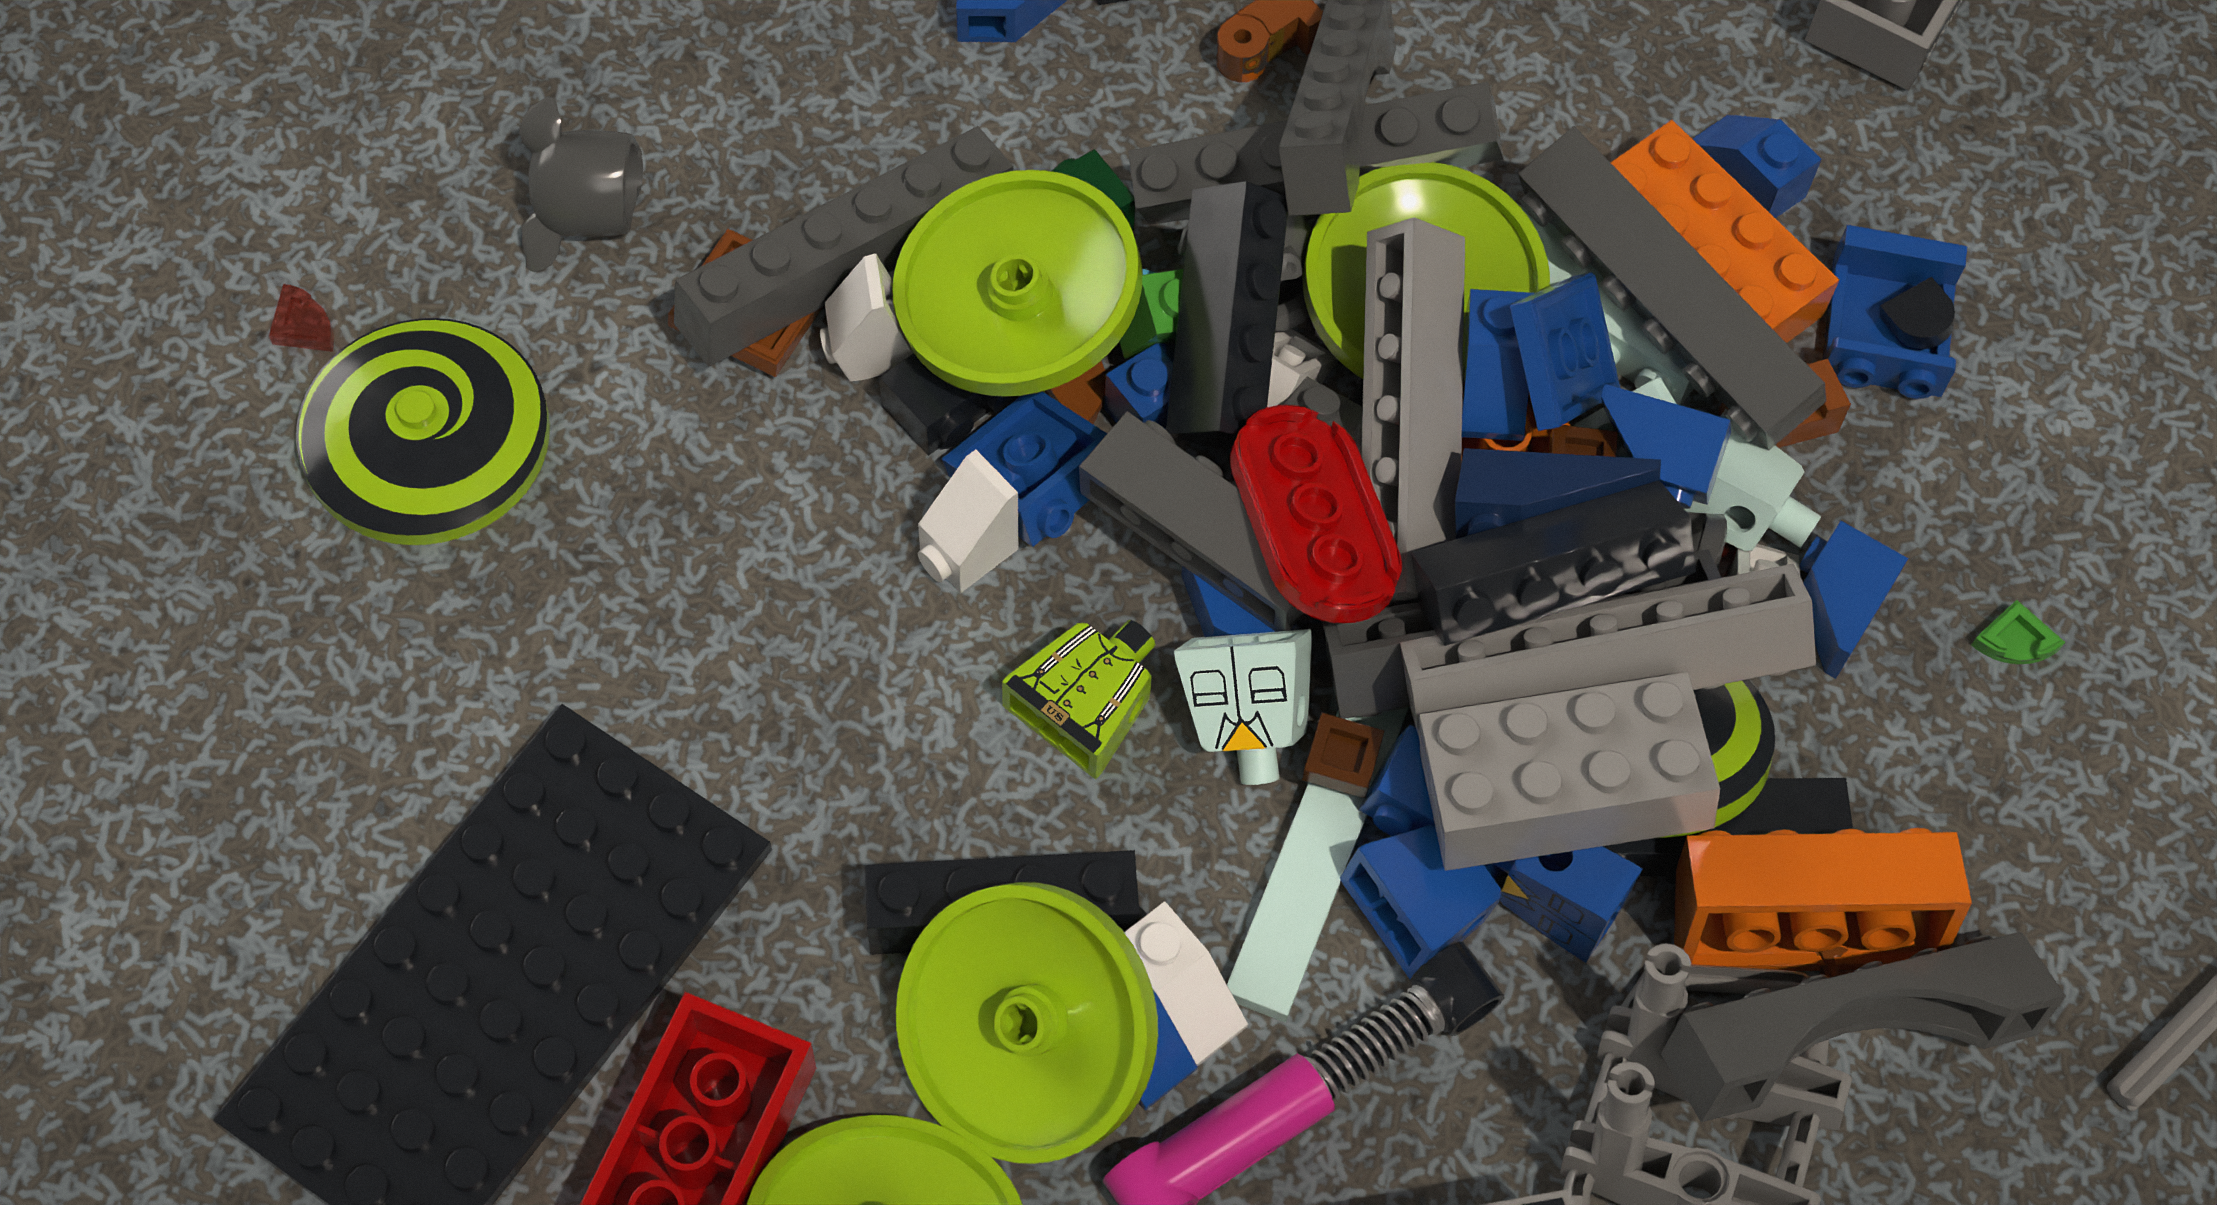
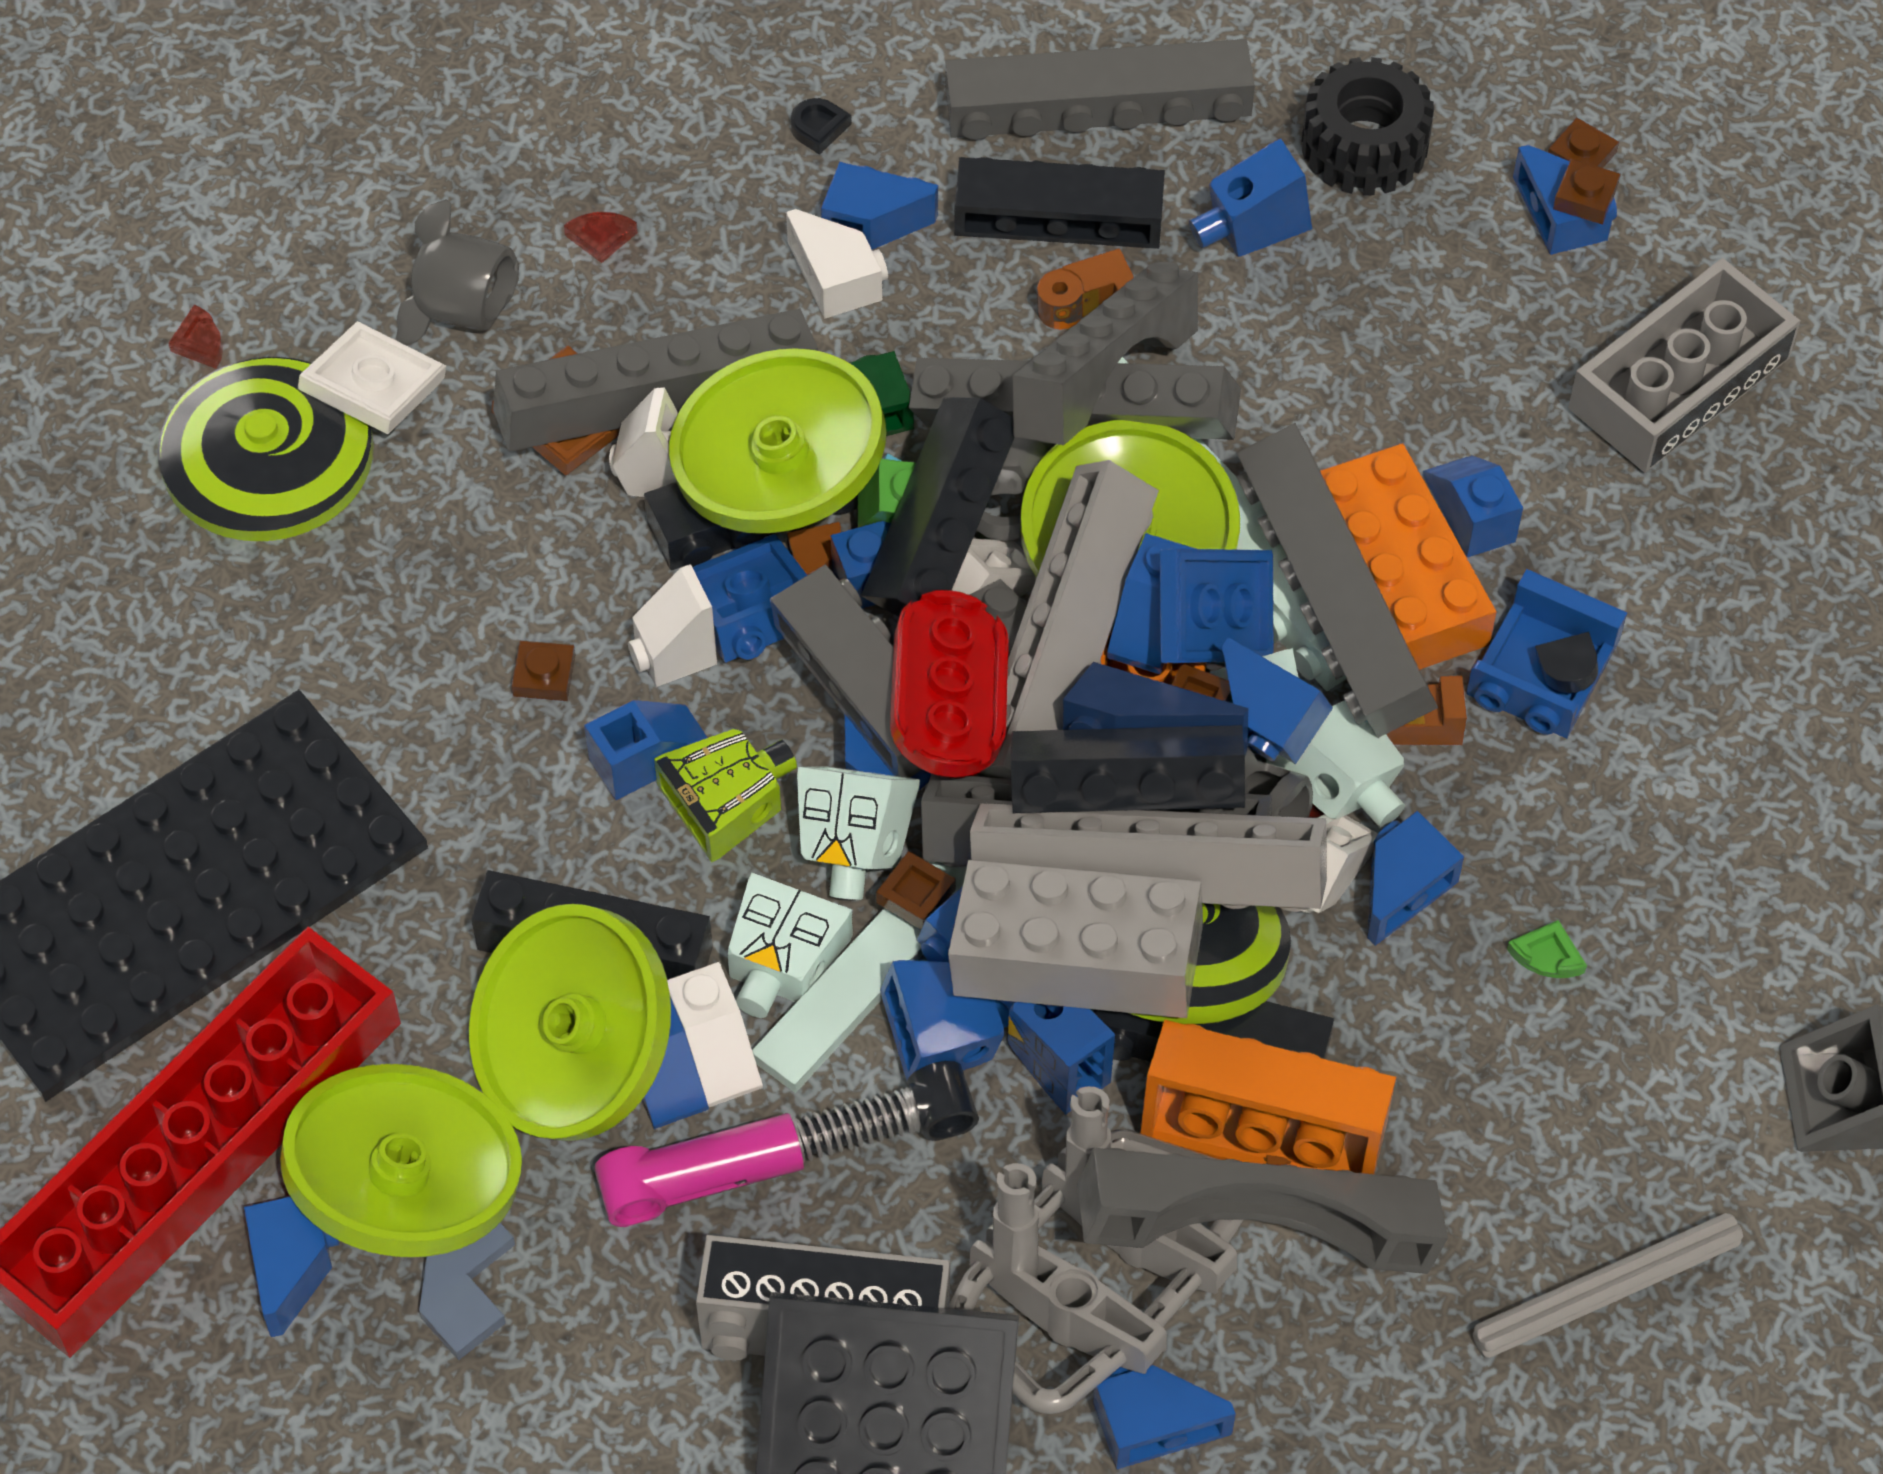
camera: 20 degrees right, 5 degrees down
(519, 319) = (372, 377): none -> white tile
(714, 92) = (600, 233): none -> clear red tile
(830, 608) = (543, 670): none -> reddish brown plate
(967, 667) = (631, 736): none -> blue slope
(986, 65) = (835, 263): none -> white slope
(1215, 854) = (783, 942): none -> light aqua torso

